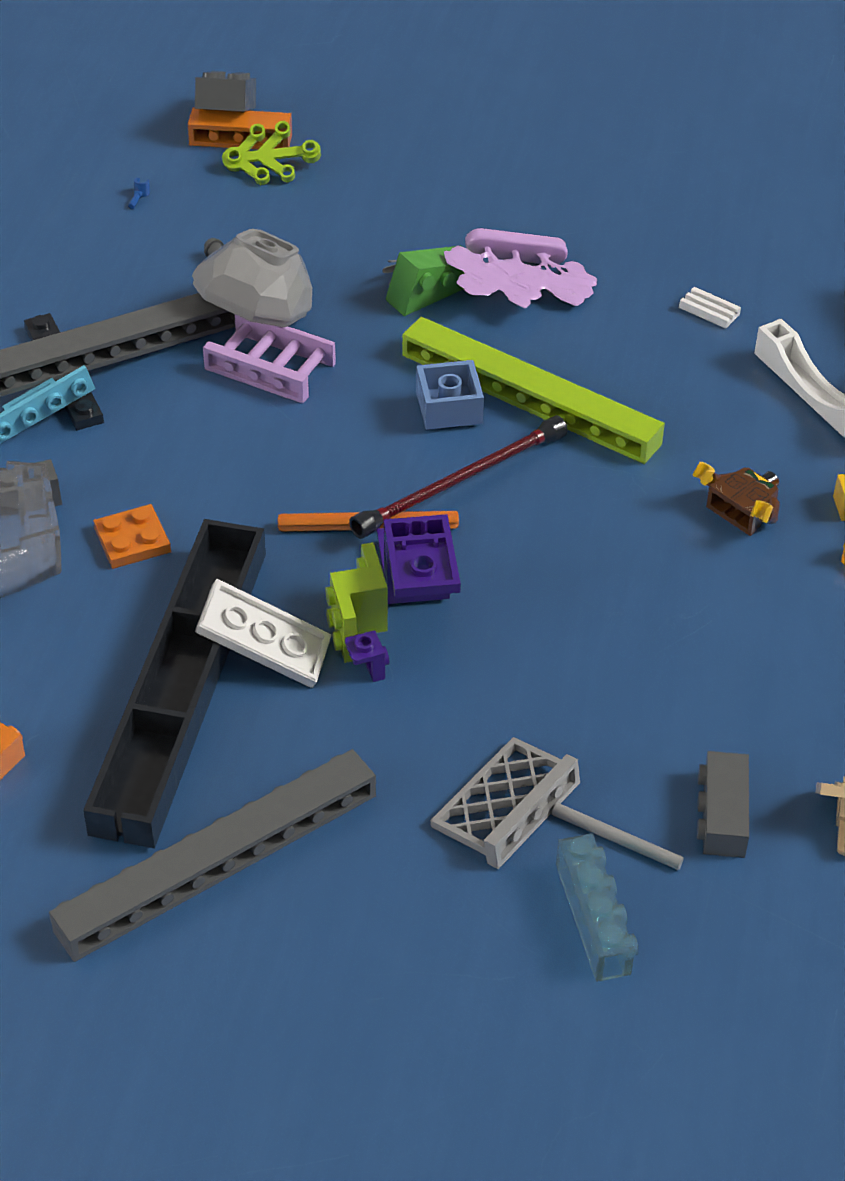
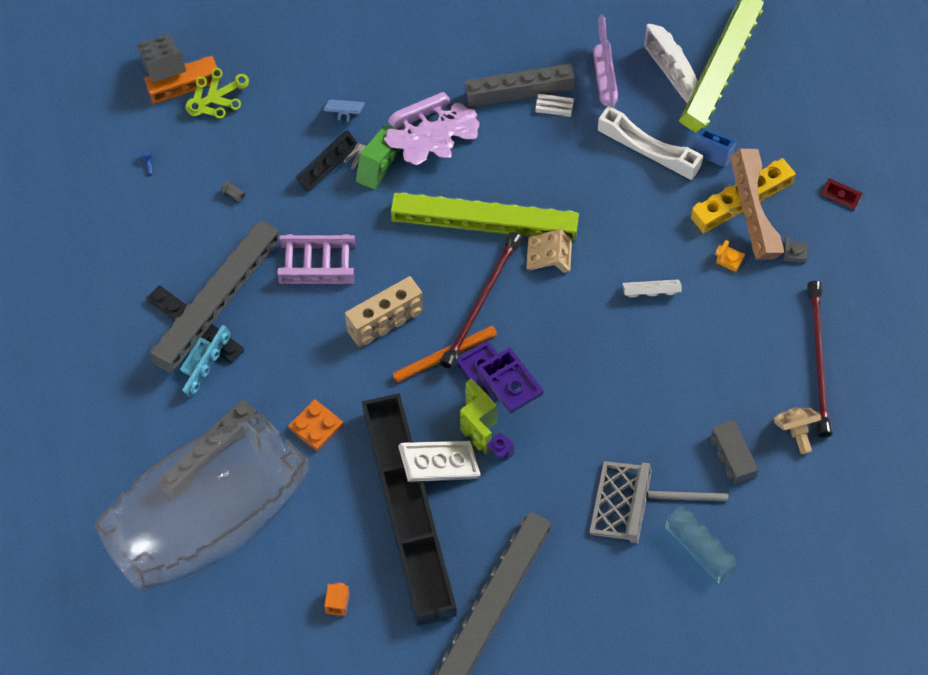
camera: 25 degrees left, 15 degrees up
(256, 279) = (283, 213): light grey rock -> none
(314, 435) = (379, 308): none -> tan brick
(355, 262) = (326, 161): none -> black plate
(420, 218) = (344, 107): none -> medium blue piece
(449, 394) = (443, 244): medium blue brick -> none
(605, 453) = (548, 250): none -> tan bracket
(672, 267) = (519, 85): none -> dark grey brick
(721, 552) = (652, 288): none -> white plate
(741, 496) = (646, 244): reddish brown torso -> none
(808, 281) = (604, 67): none -> lavender plant

